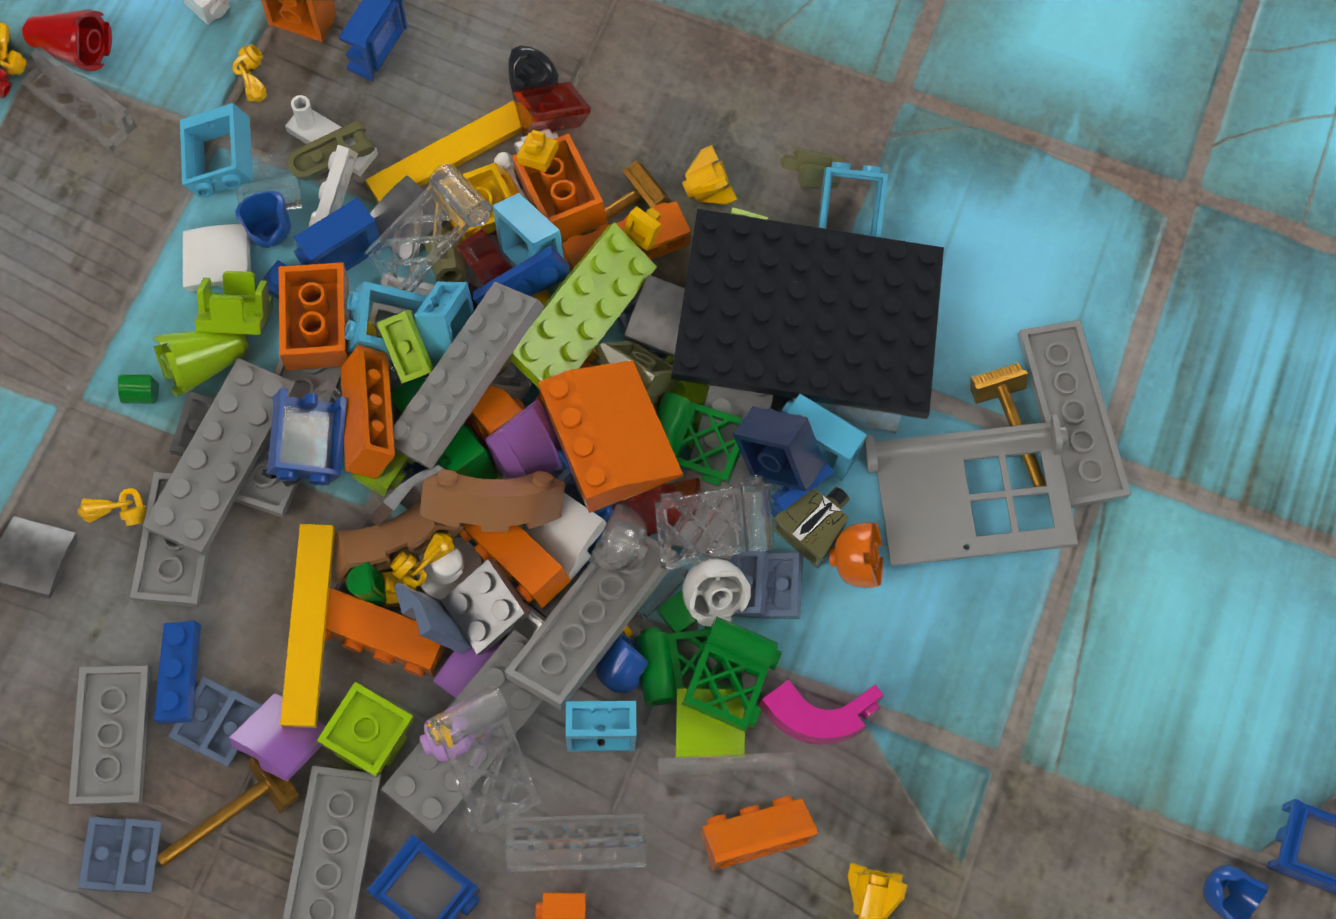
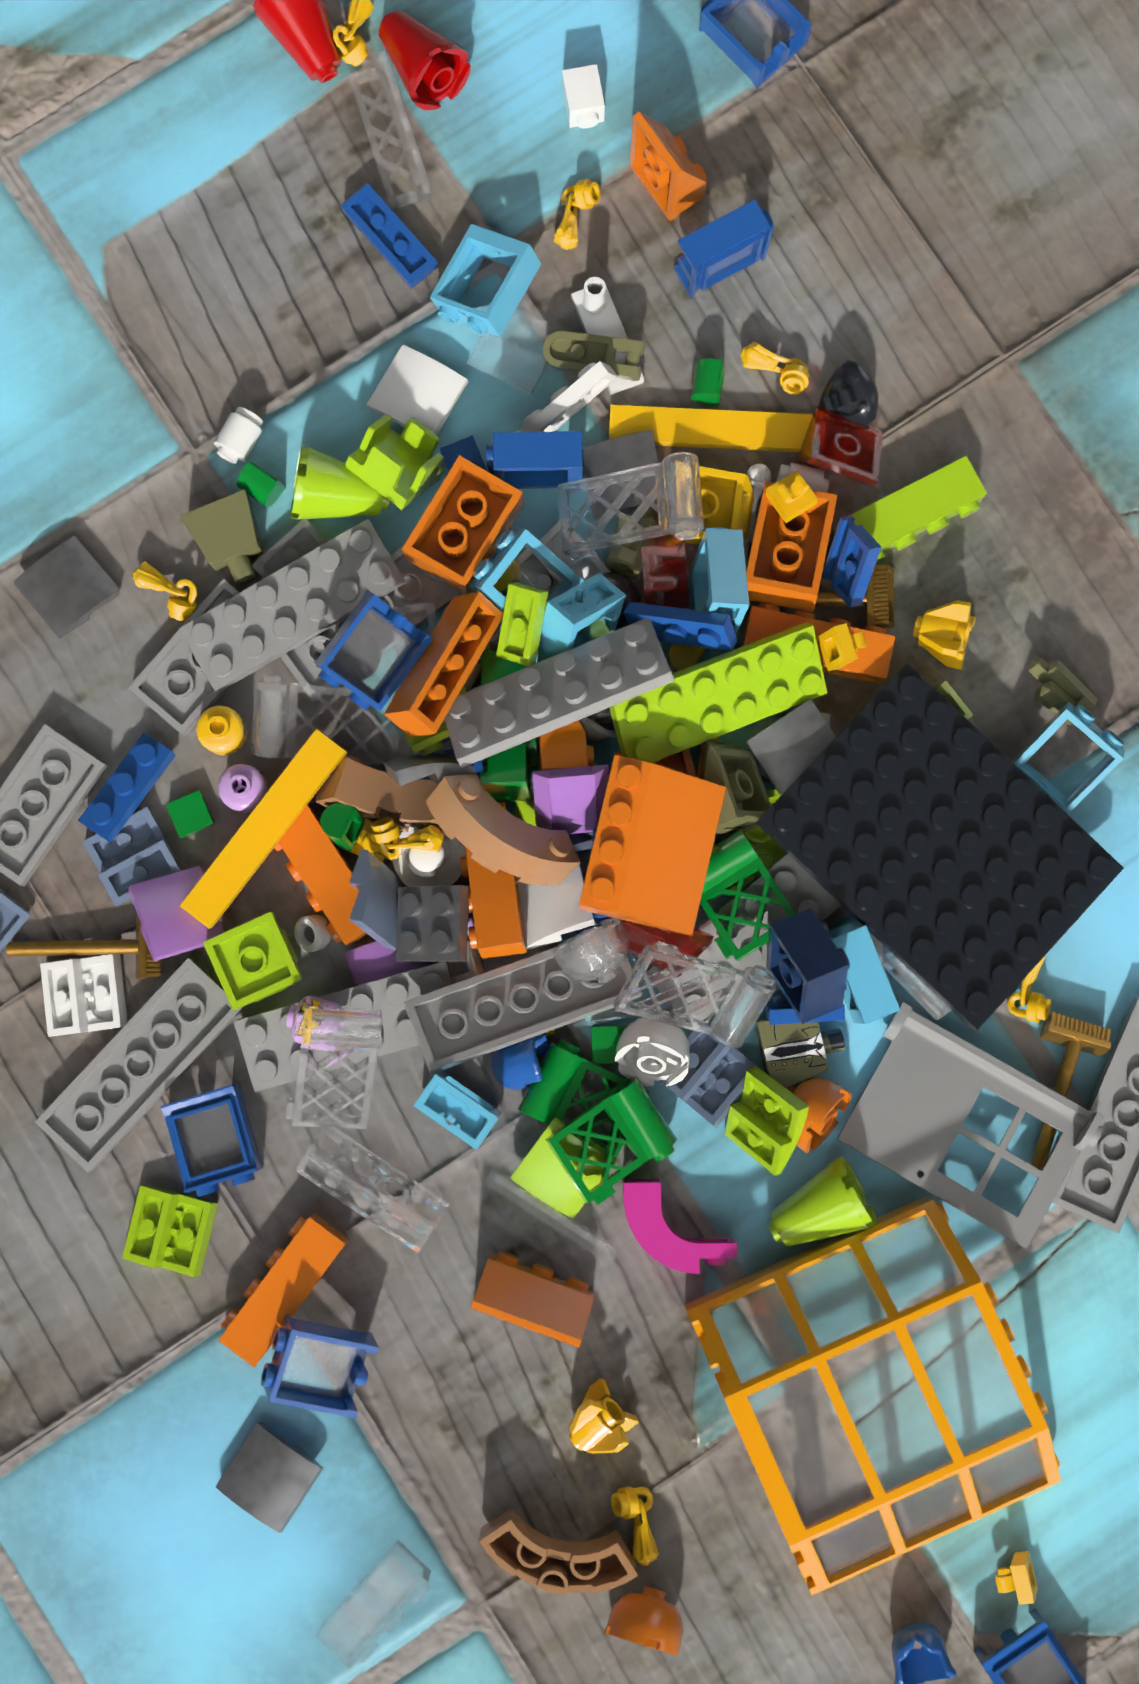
camera: 40 degrees right, 15 degrees up
(98, 366) = (238, 435): none -> white brick
(123, 166) = (389, 236): none -> blue plate
(135, 440) = (227, 534): none -> olive torso
(225, 579) = (221, 730): none -> yellow head
(241, 660) = (190, 814): none -> green tile
(246, 855) = (83, 995): none -> white slope
(260, 536) = (276, 720): none -> clear piece
(265, 218) = (485, 385): blue hair -> none
(270, 610) = (232, 783): none -> lavender head
(405, 678) = (322, 936): none -> white piece
(424, 123) = (708, 382): none -> green brick
(481, 84) = (793, 376): none -> yellow piece
(610, 170) = (851, 561): none -> blue plate
(626, 120) = (922, 506): none -> lime brick
(831, 582) = (766, 1120): none -> lime slope
(917, 617) = (823, 1207): none -> lime cone
(957, 380) = (1038, 1006): none -> yellow piece
(1059, 718) = (876, 1392): none -> clear window
(1255, 785) = (1018, 1577): none -> yellow tile

